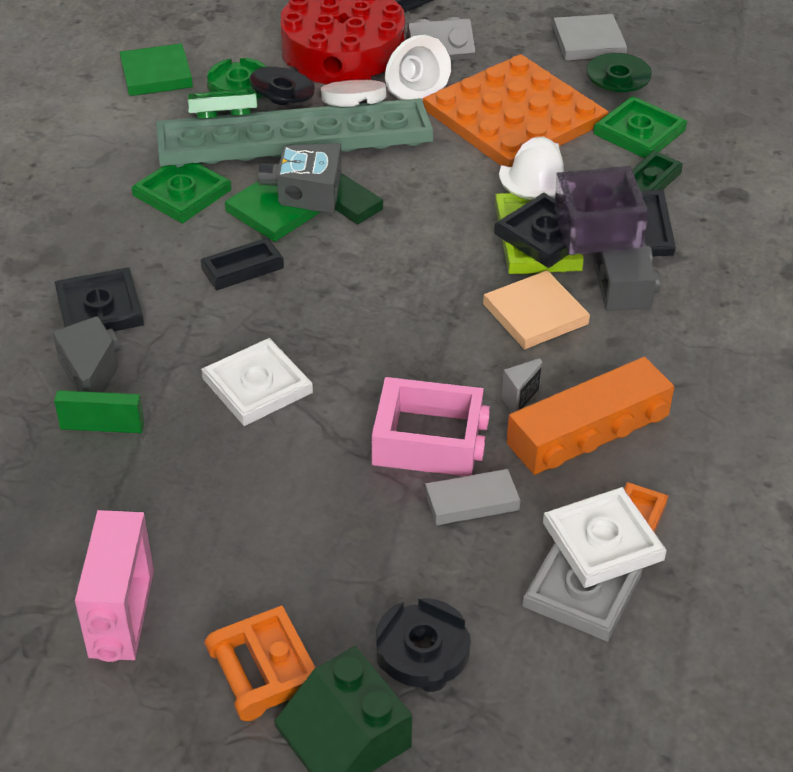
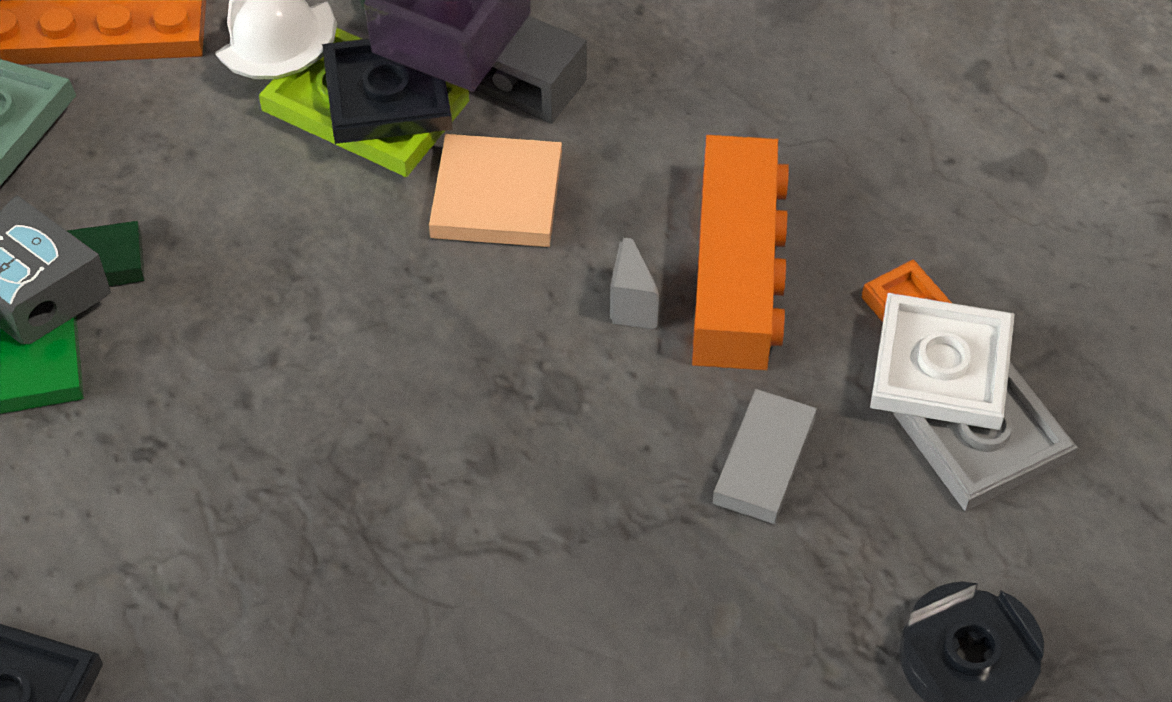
camera: 55 degrees left, 10 degrees up
(242, 263) = (97, 465): black tile -> none
(257, 381) = (355, 581): white tile -> none
(425, 451) = (585, 474): bright pink window -> none

